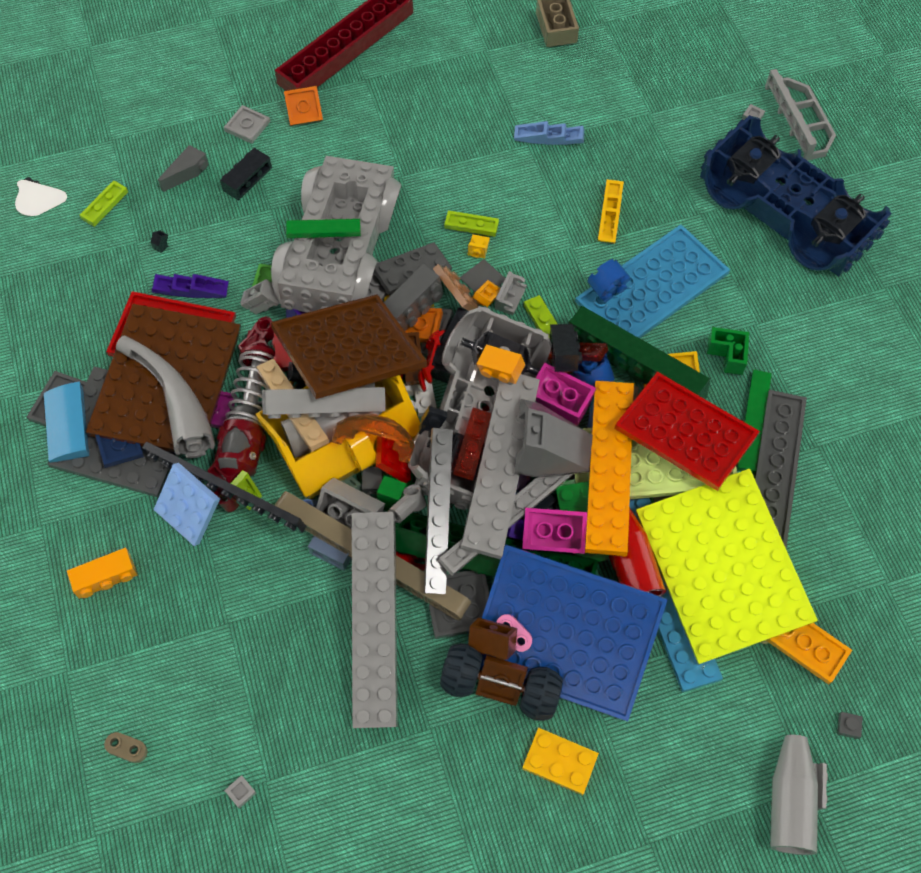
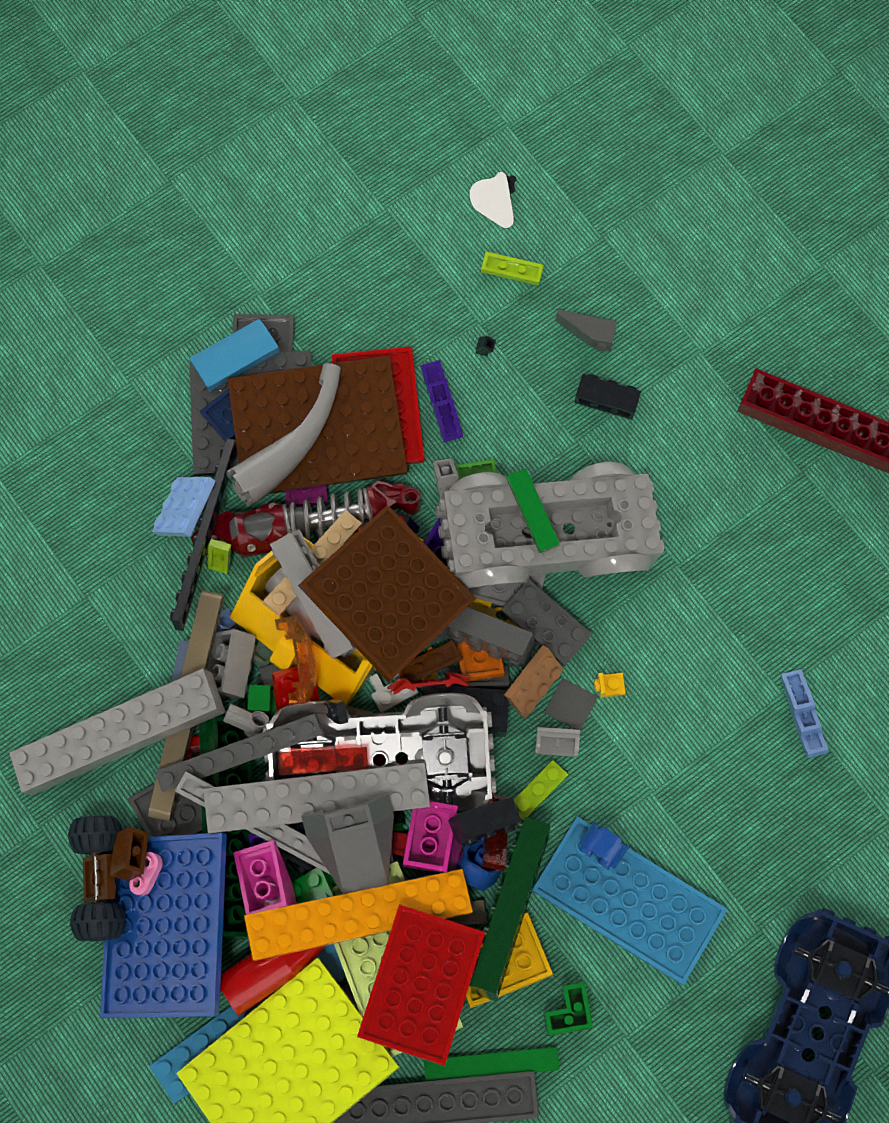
camera: 70 degrees right, 10 degrees up
(102, 573) = (95, 460): light orange brick -> none
(247, 124) = (680, 368): light grey tile -> none
(303, 105) = (724, 419): orange plate -> none
(471, 223) = (637, 666): lime plate -> none
(486, 293) = (543, 715): light orange plate -> none
(500, 364) = (421, 758): light orange brick -> none
(560, 761) = (43, 963): yellow plate -> none
(610, 211) = (716, 820): yellow slope -> none

